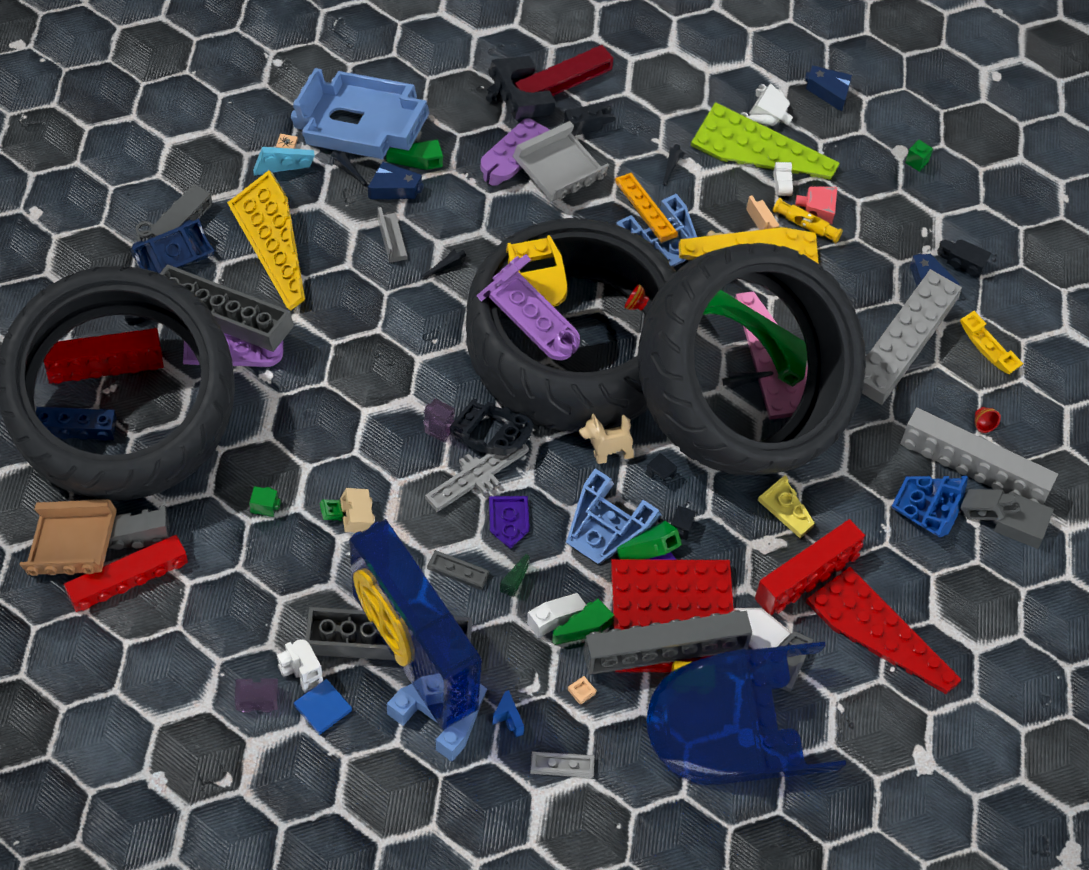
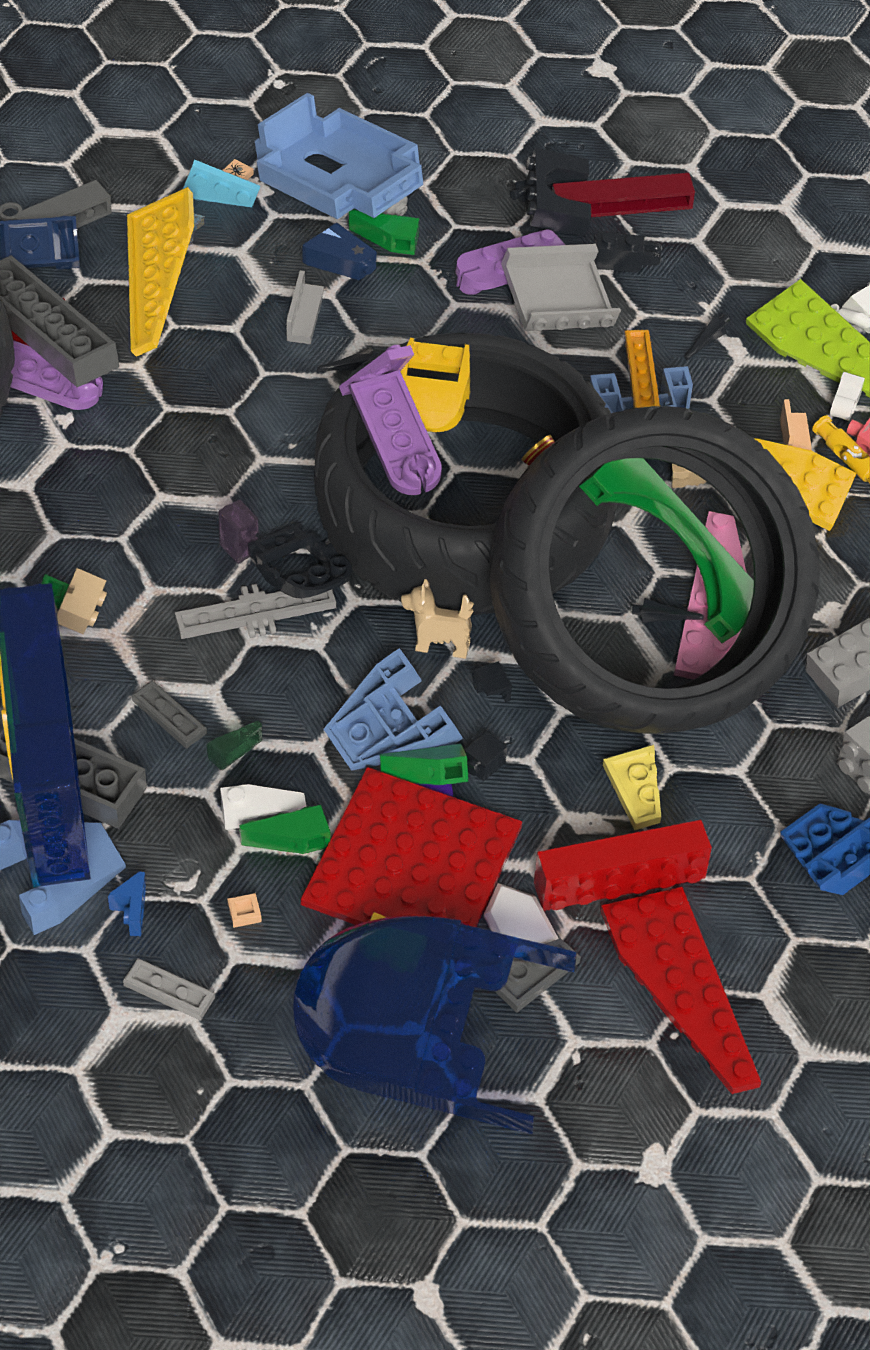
camera: 25 degrees right, 5 degrees down
(344, 163) = (293, 214): black piece -> none
(509, 518) = (266, 676): dark purple tile -> none
(667, 642) = (371, 882): dark grey brick -> none

